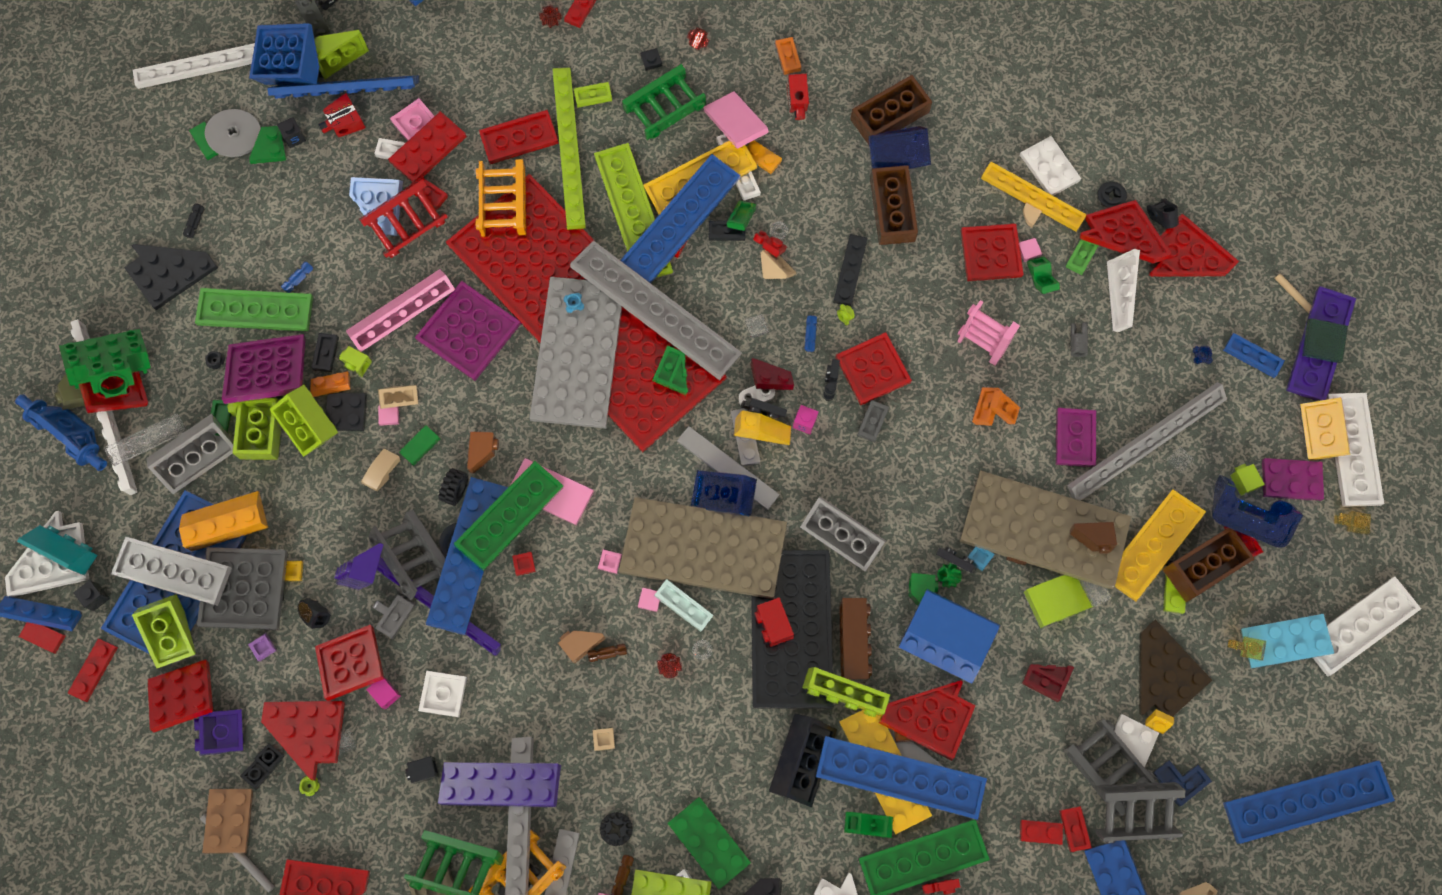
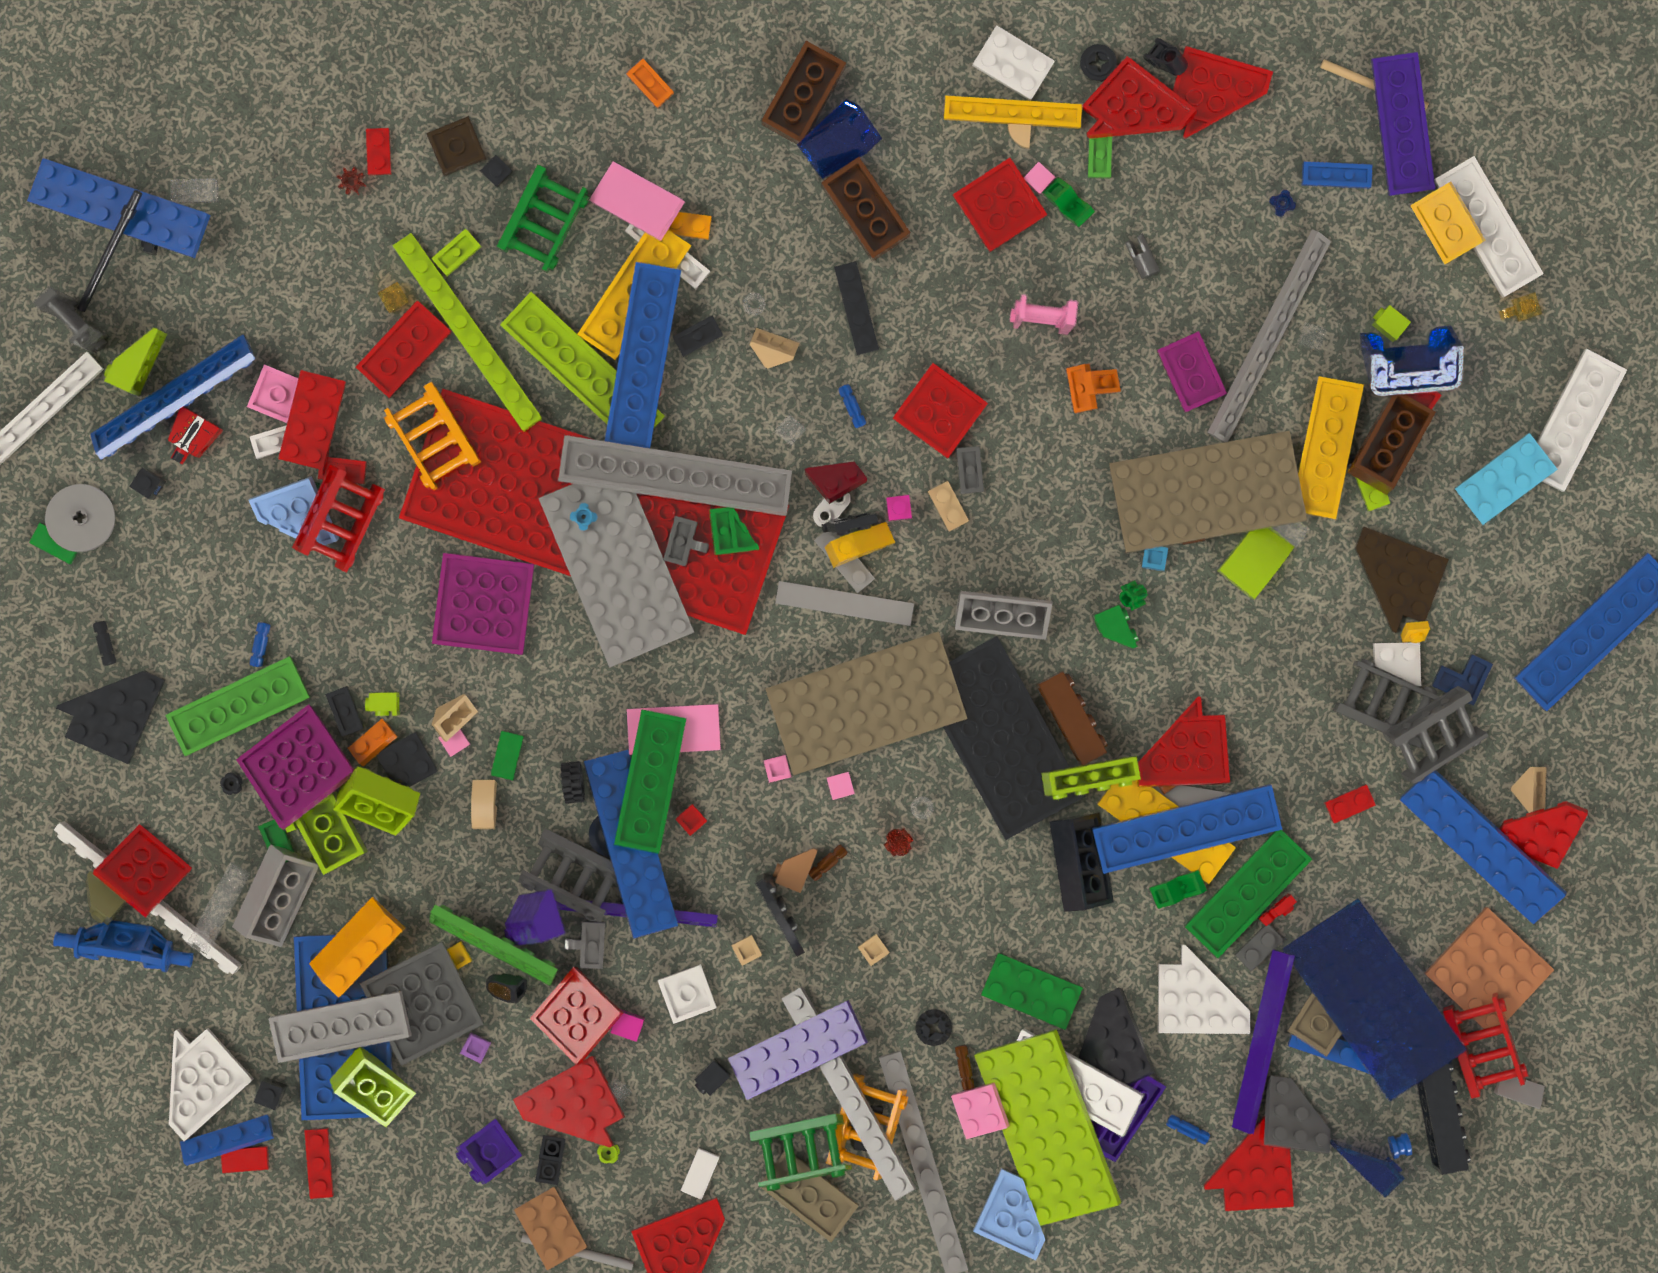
camera: 25 degrees left, 15 degrees up
(59, 548) = (210, 1067): teal slope -> none
(105, 357) = (128, 853): green piece -> none
(179, 696) = (427, 1140): red plate -> none
(268, 146) = (130, 512): green wing -> none
(285, 55) = (89, 403): blue slope -> none
(324, 578) = (500, 948): none -> bright green plate
(368, 843) = (700, 1173): none -> white tile
(400, 310) = (398, 622): bright pink brick -> none
(481, 449) = (576, 725): dark orange slope -> none
(507, 685) = (746, 950): none -> tan plate
(532, 101) = (393, 297): none -> clear yellow plate
(547, 662) = (778, 909): none -> black wing
(633, 31) = (456, 146): none -> dark brown tile
(635, 358) = (682, 541): none -> dark grey plate
(683, 605) = (879, 773): light aqua plate -> none
(698, 38) = (536, 118): clear red gear -> none
(724, 492) = (856, 635): clear blue slope -> none
(741, 215) = (705, 311): green tile -> none
(772, 245) = (756, 326): red plate -> none
(774, 621) = (982, 744): red brick -> none
(798, 95) = (683, 125): red torso -> none
(831, 378) = (902, 446): black plate -> none
(842, 439) = (948, 506): none -> tan plate
(845, 314) = (878, 364): lime plate -> none
(949, 636) = (1164, 662): blue slope -> none
(950, 555) = (1124, 574): black plate -> none
(1048, 680) = (1285, 648): dark red wing -> none
(1075, 829) = (1381, 783): red plate -> none
(1096, 536) = (1263, 477): reddish brown slope -> none
(1122, 288) = (1158, 165): white wing -> none
(1250, 647) = (1472, 507): clear yellow plate -> none
(1293, 479) = (1438, 295): magenta plate -> none
(1325, 340) = (1405, 121): clear green tile -> none

